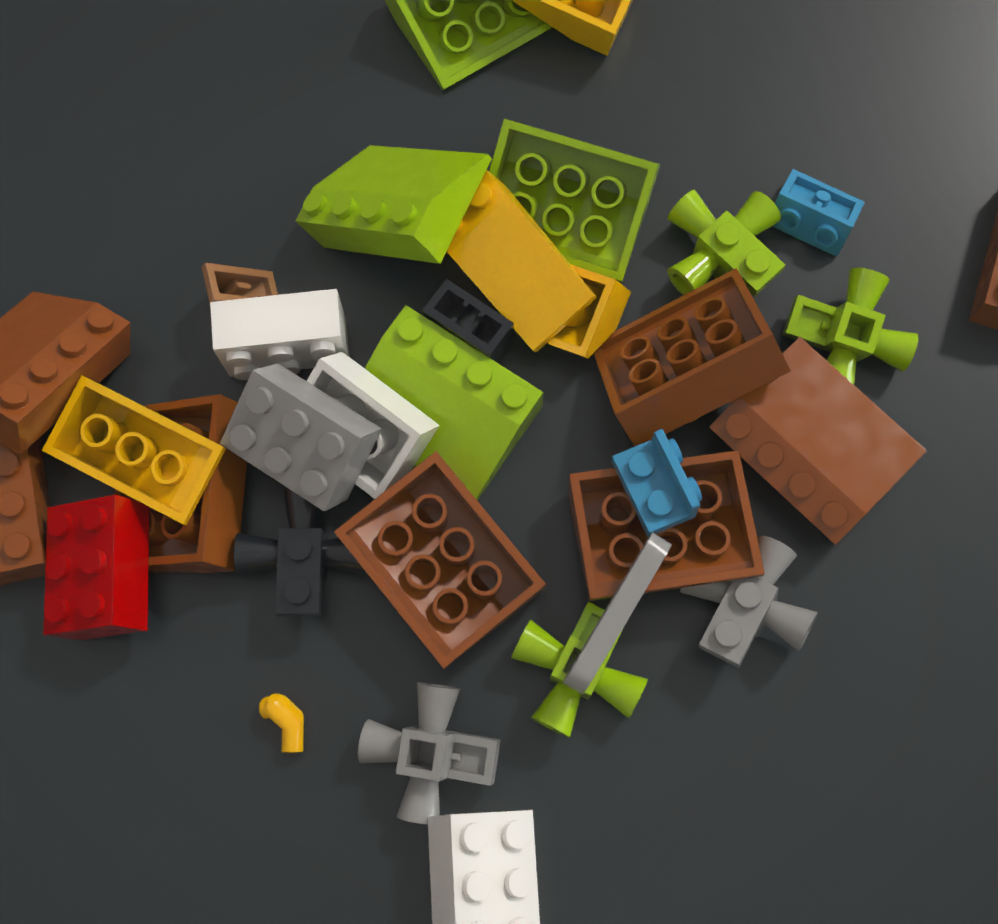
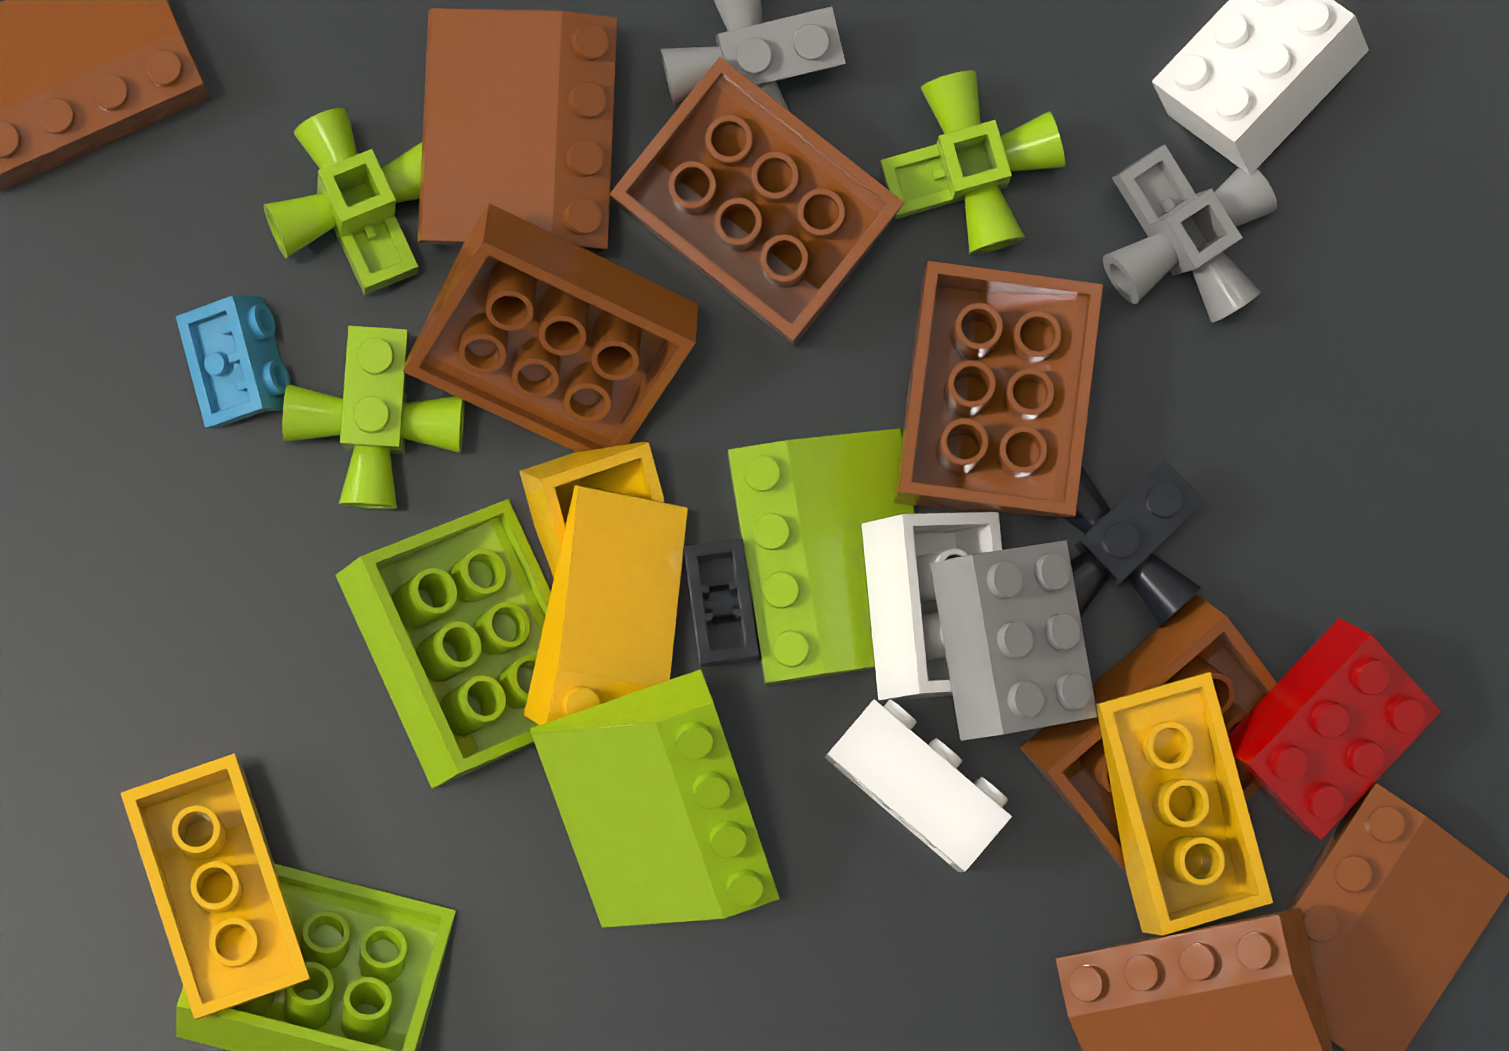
camera: 140 degrees left, 10 degrees up
(234, 282) = (904, 888): medium nougat slope -> none
(288, 718) = (1284, 406): yellow arm -> none
(617, 613) = (897, 158): light grey beam -> none
(657, 483) = (727, 239): dark azure bracket -> none

